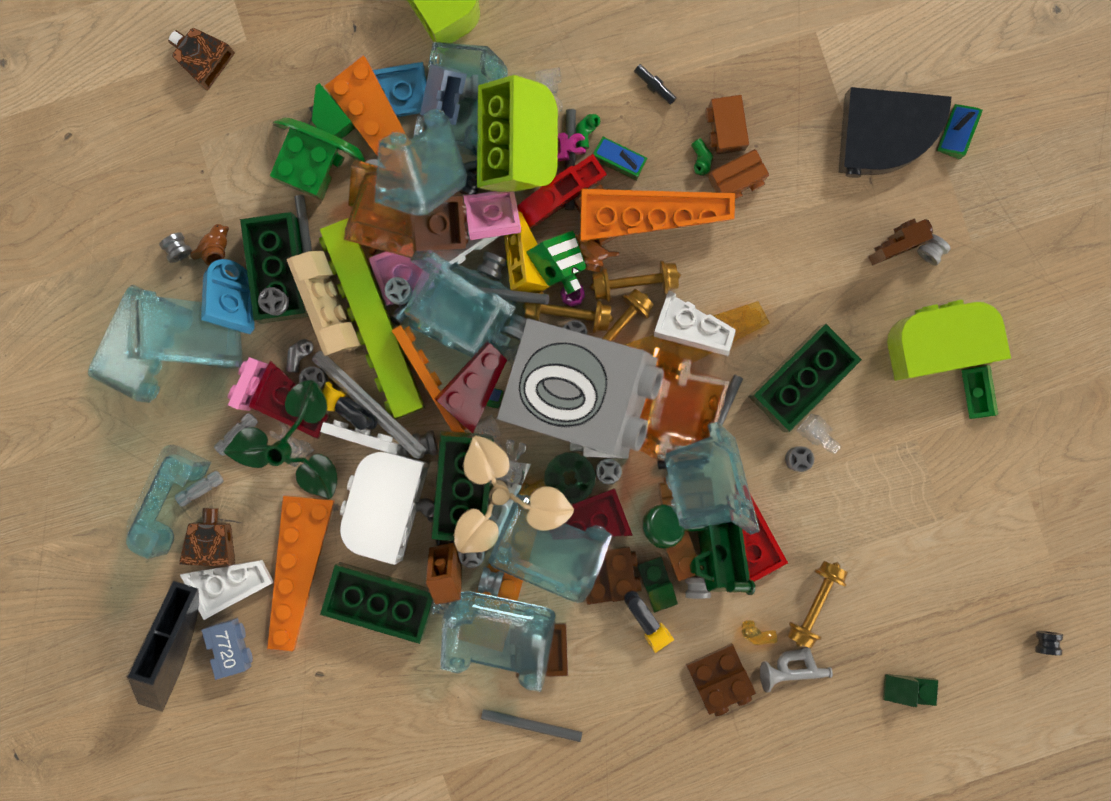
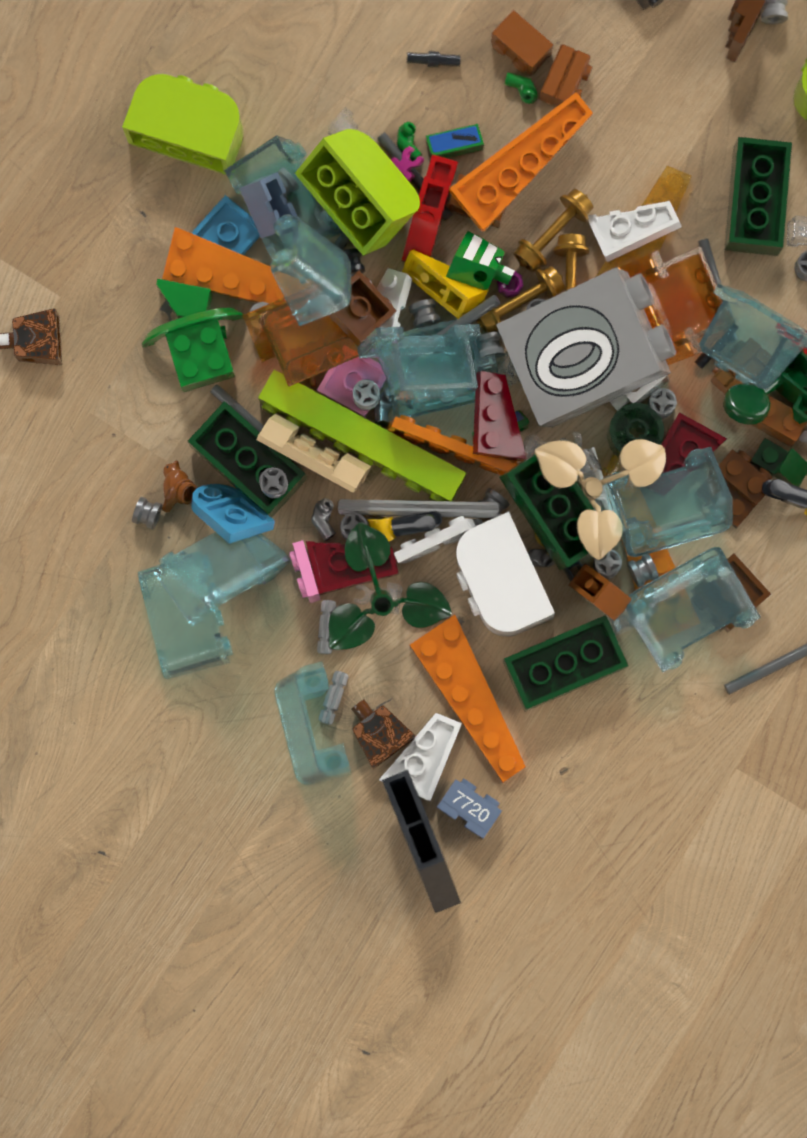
camera: 30 degrees left, 5 degrees down
(492, 214) = (393, 268): bright pink plate -> none
(594, 254) = (500, 235): dark orange animal -> none

